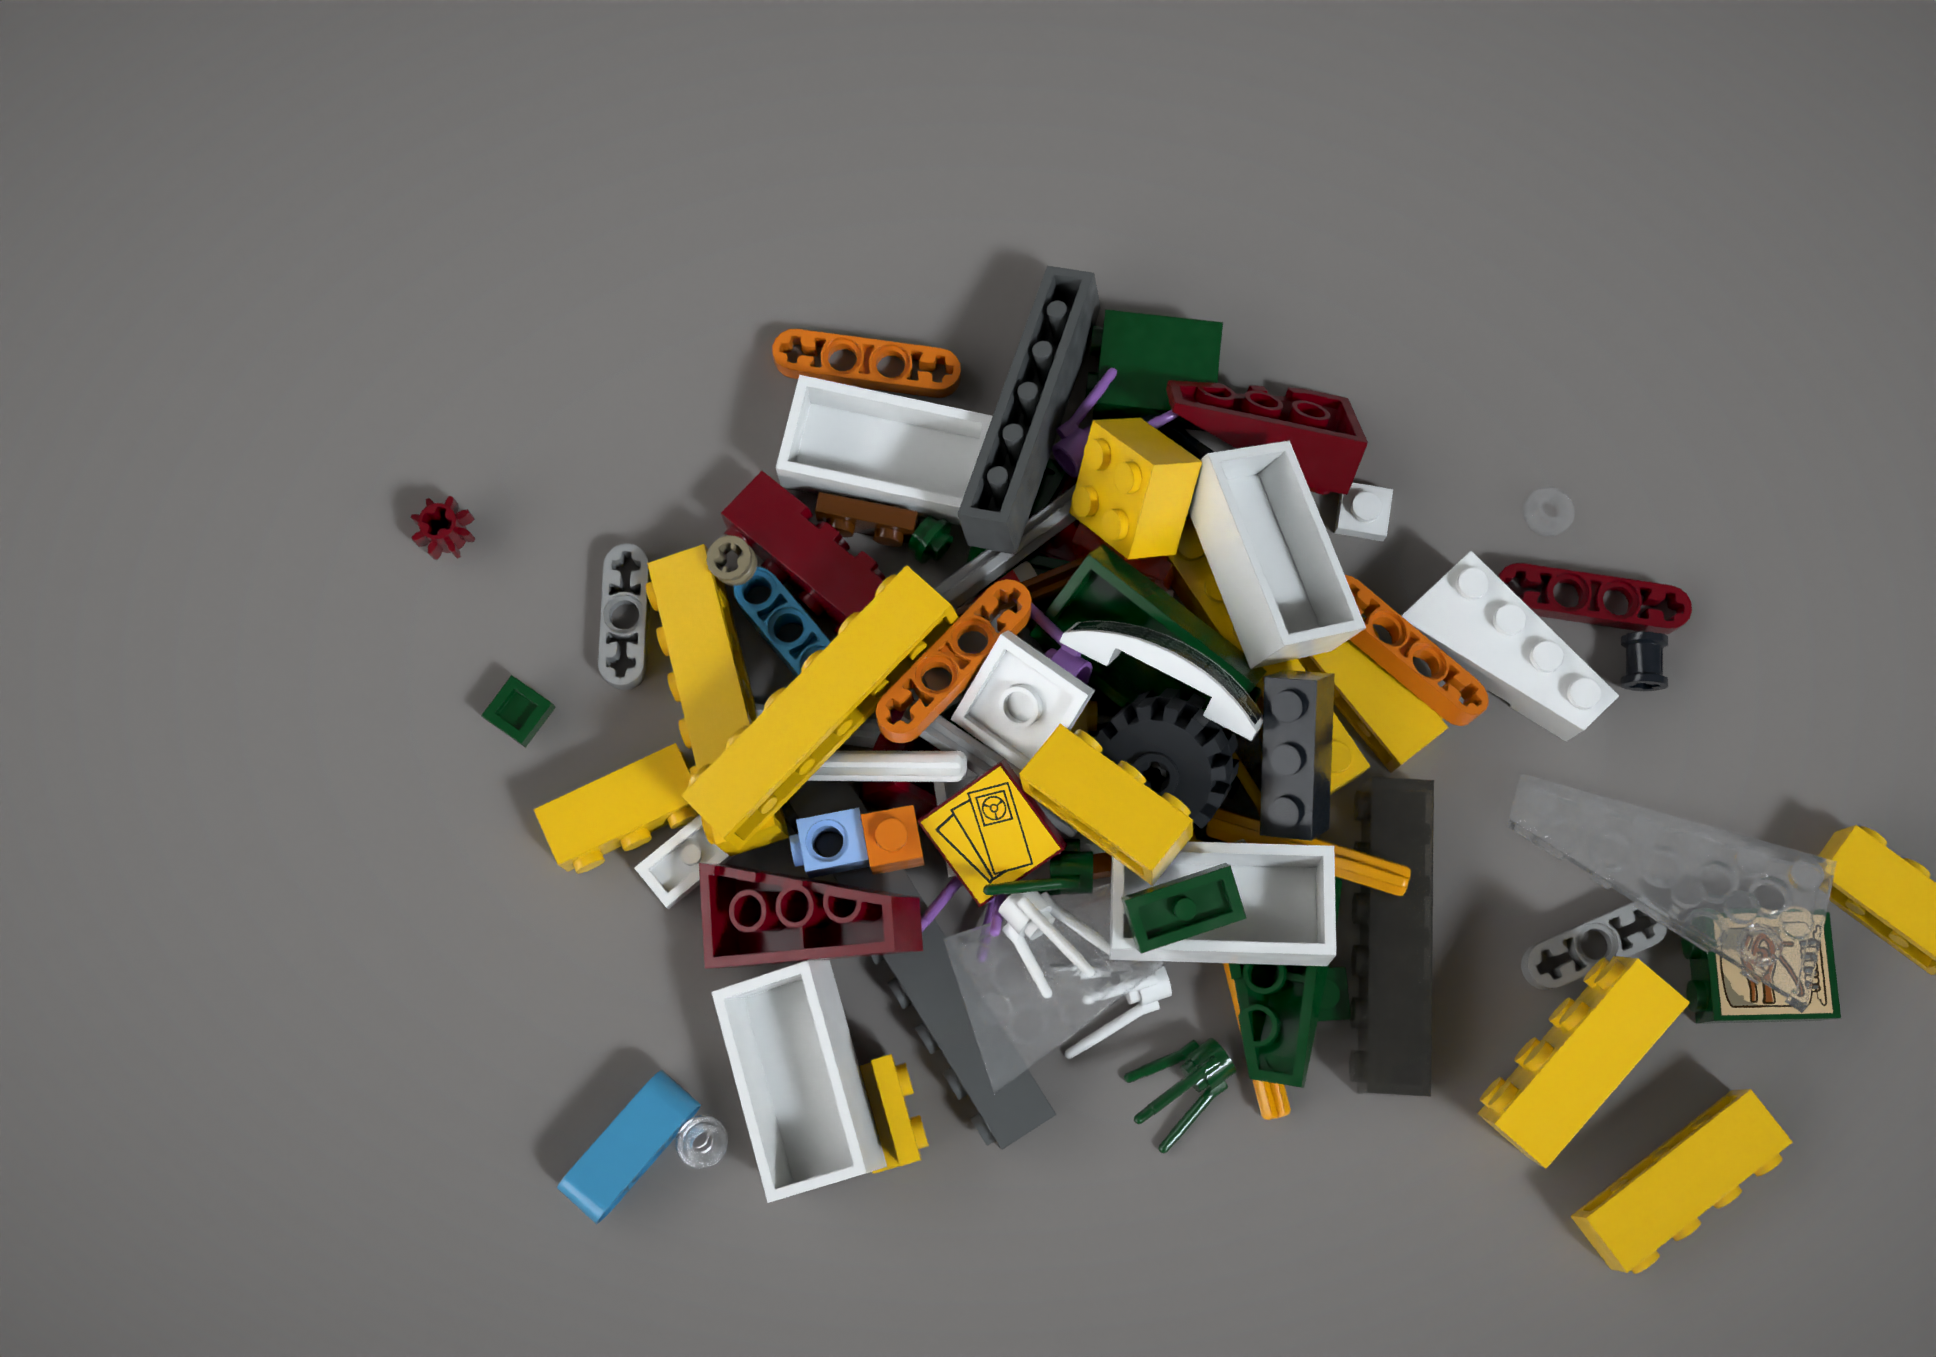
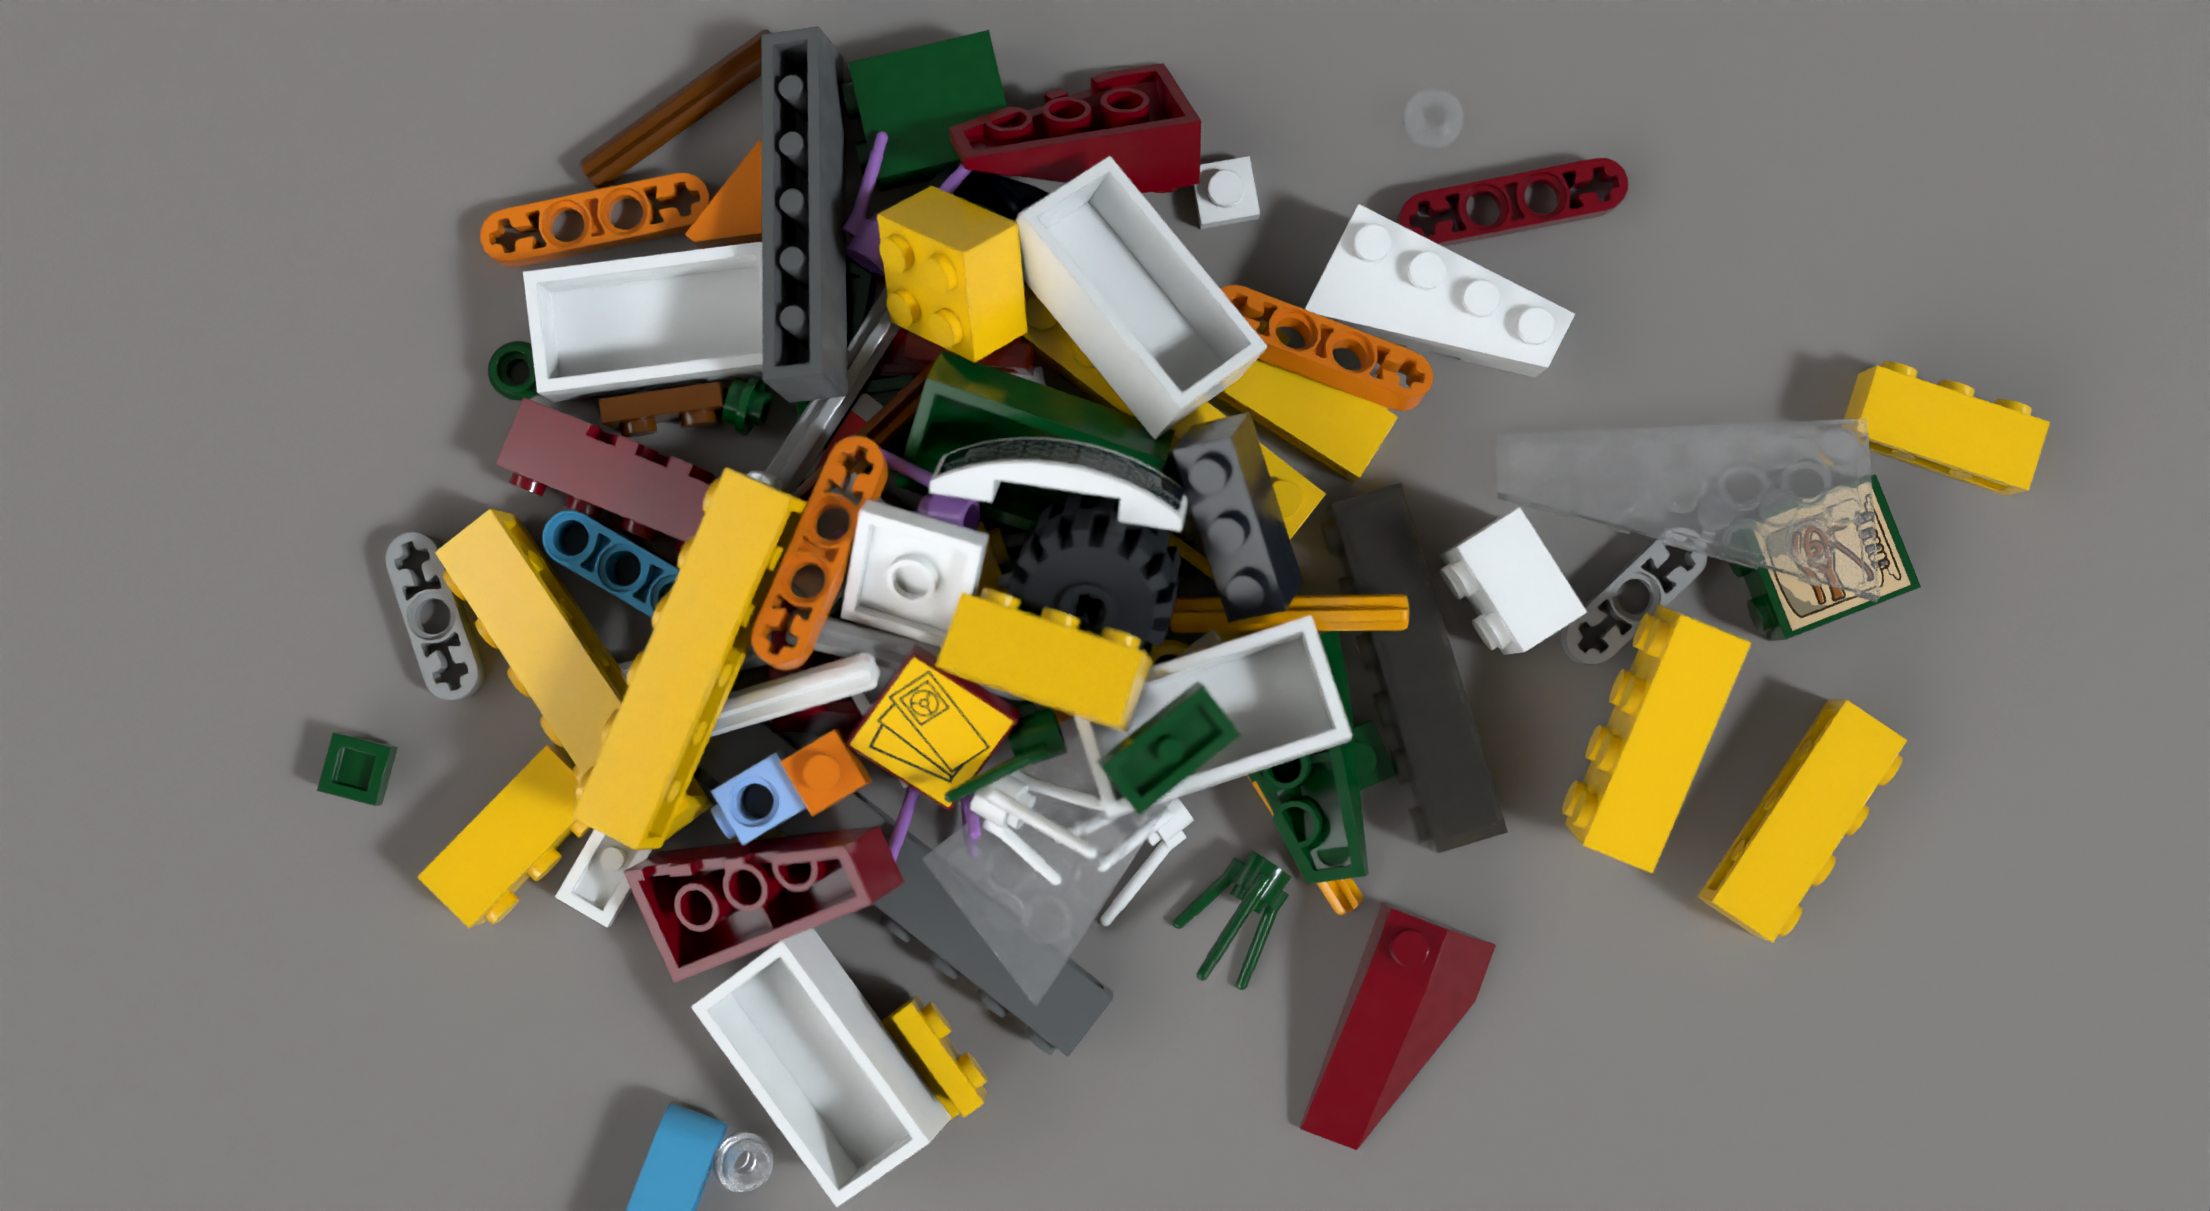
camera: 25 degrees left, 10 degrees up
(446, 540) = (169, 584): dark red gear -> none
(717, 558) = (511, 519): dark tan bush -> none
(752, 444) = (500, 371): none -> dark green plate
(956, 306) = (675, 114): none -> reddish brown axle
(979, 387) = (736, 209): none -> orange slope
(1290, 1217) = (1398, 1012): none -> dark red wedge
(1498, 892) = (1510, 584): none -> white brick
(1644, 661) = (1592, 257): black bush -> none

